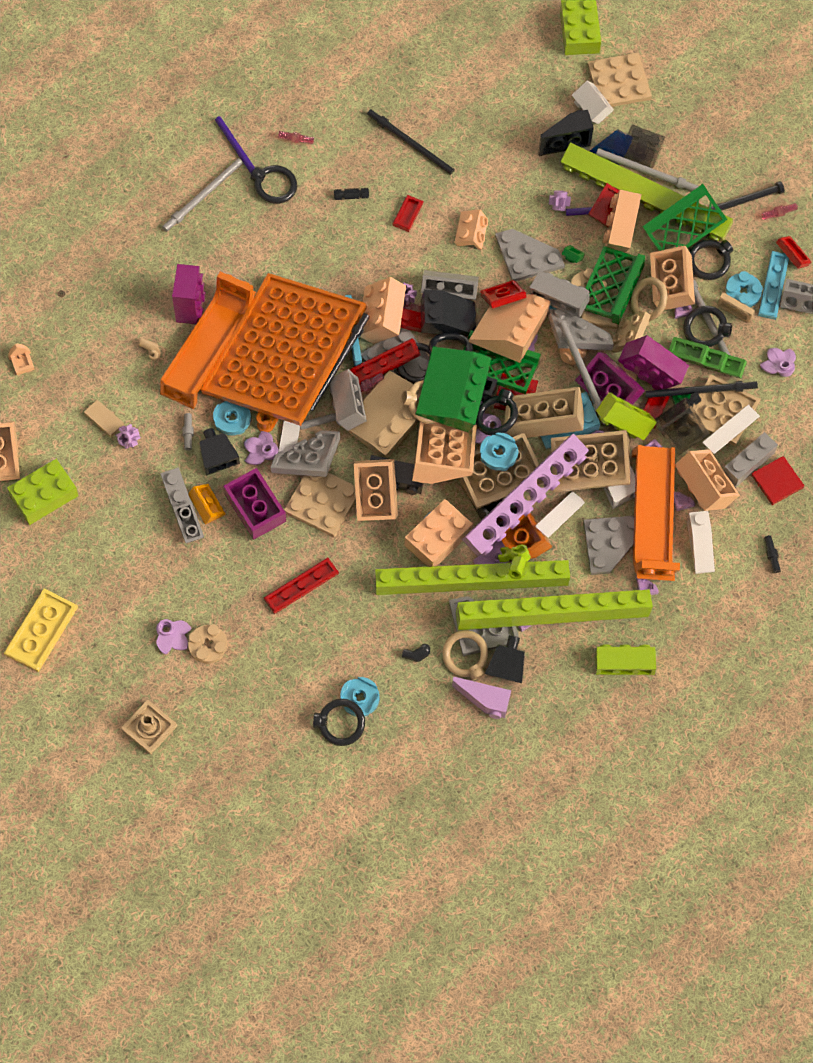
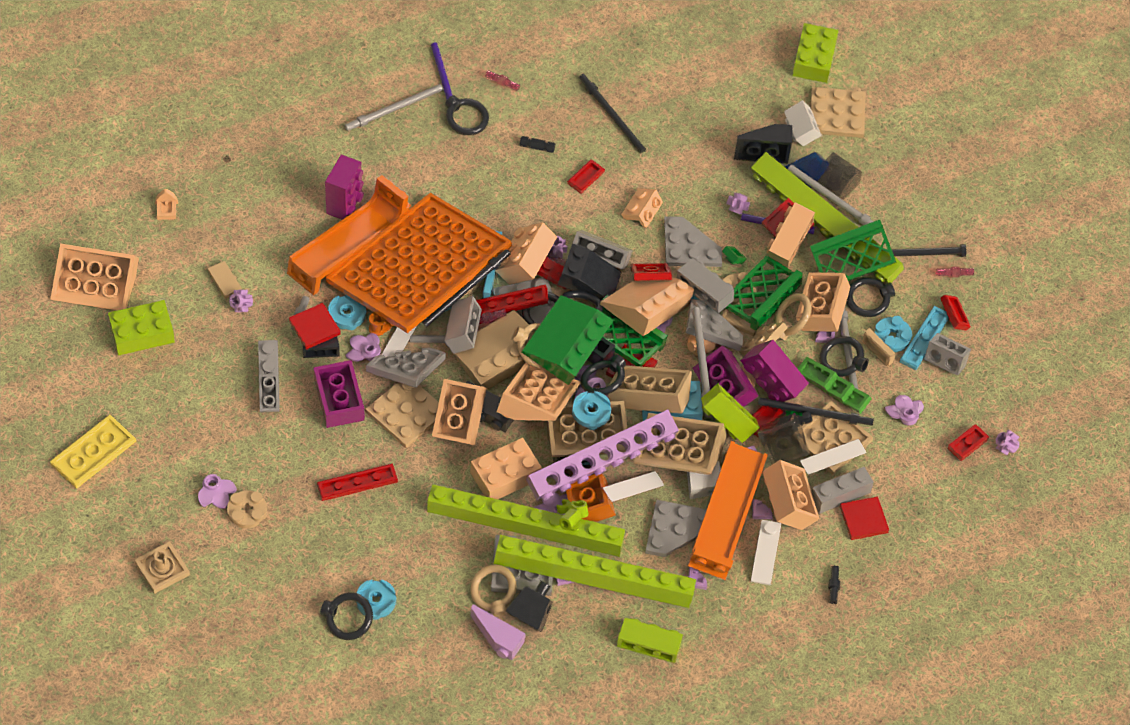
camera: 15 degrees right, 10 degrees down
(153, 349) = (295, 230): tan arm -> none
(206, 503) = (293, 382): light orange slope -> none
(209, 442) = (314, 326): none -> red tile
(418, 654) = (448, 576): black arm -> none

